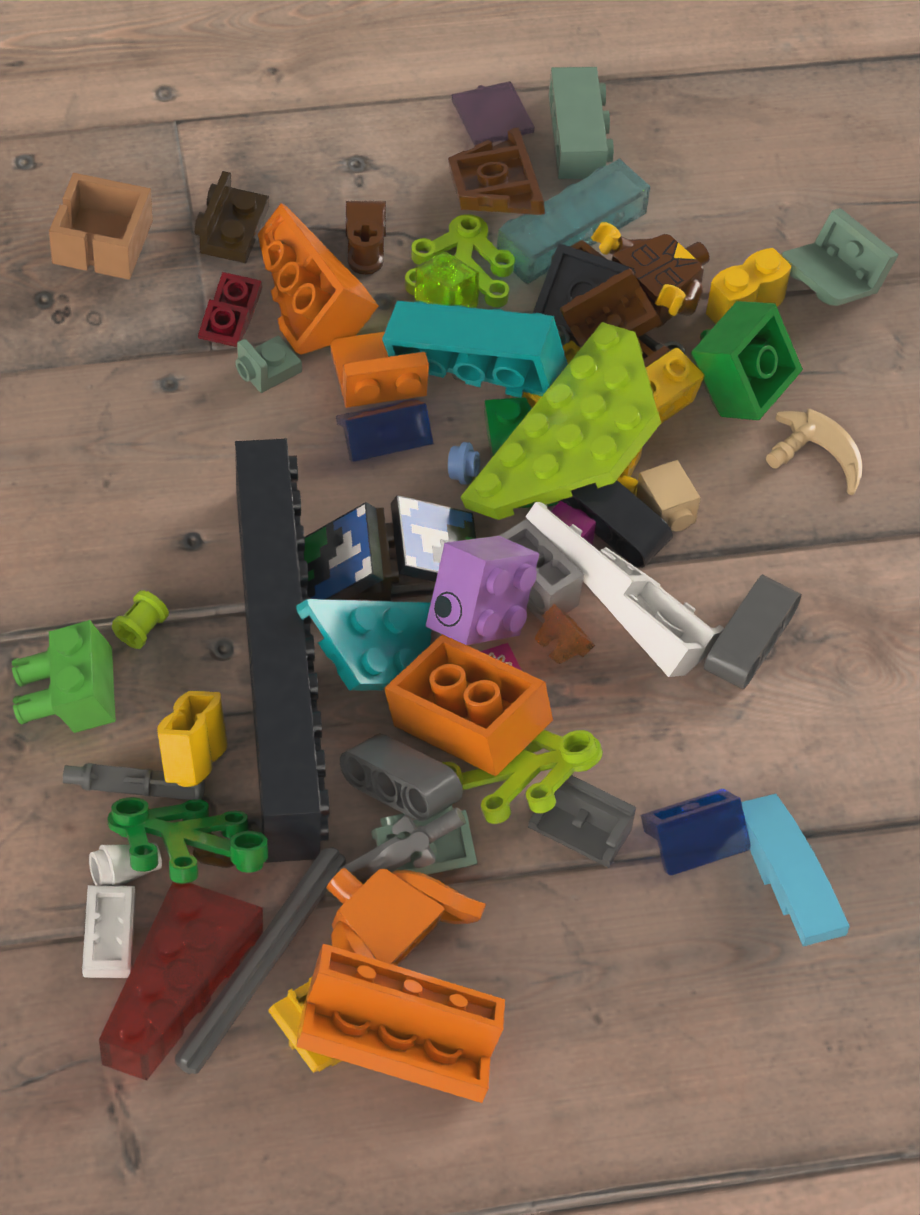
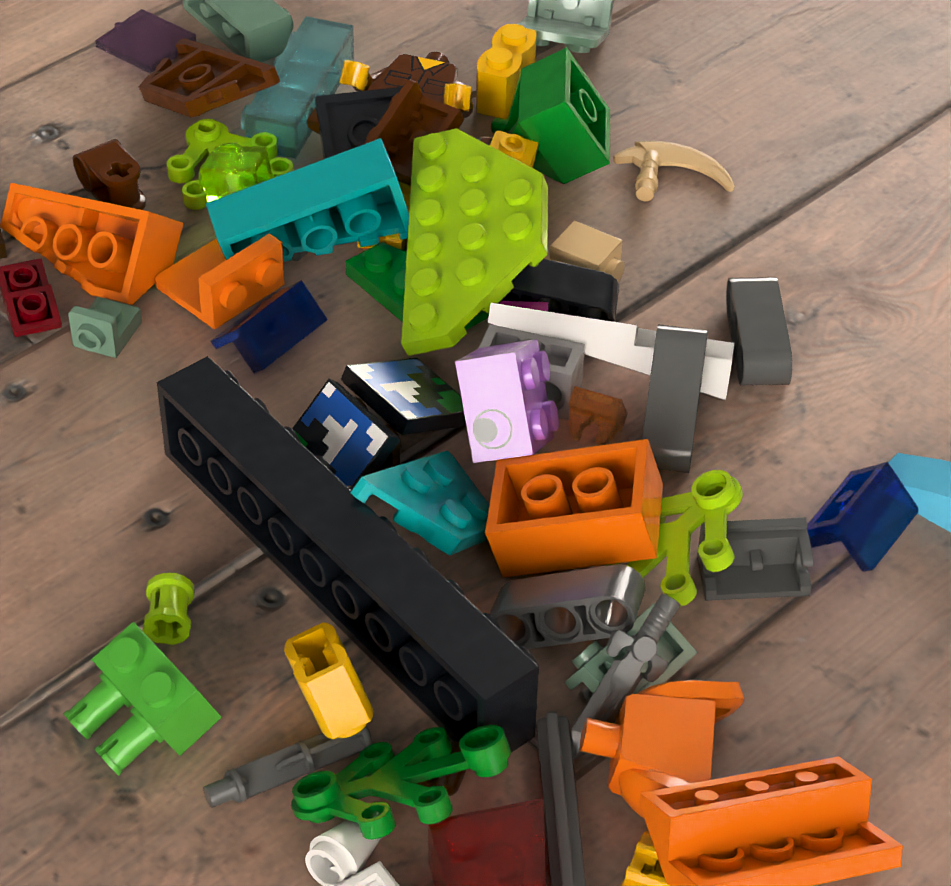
camera: 30 degrees left, 10 degrees down
(463, 463) = (373, 319): medium blue plate -> none
(620, 654) = (674, 395): none -> dark grey beam

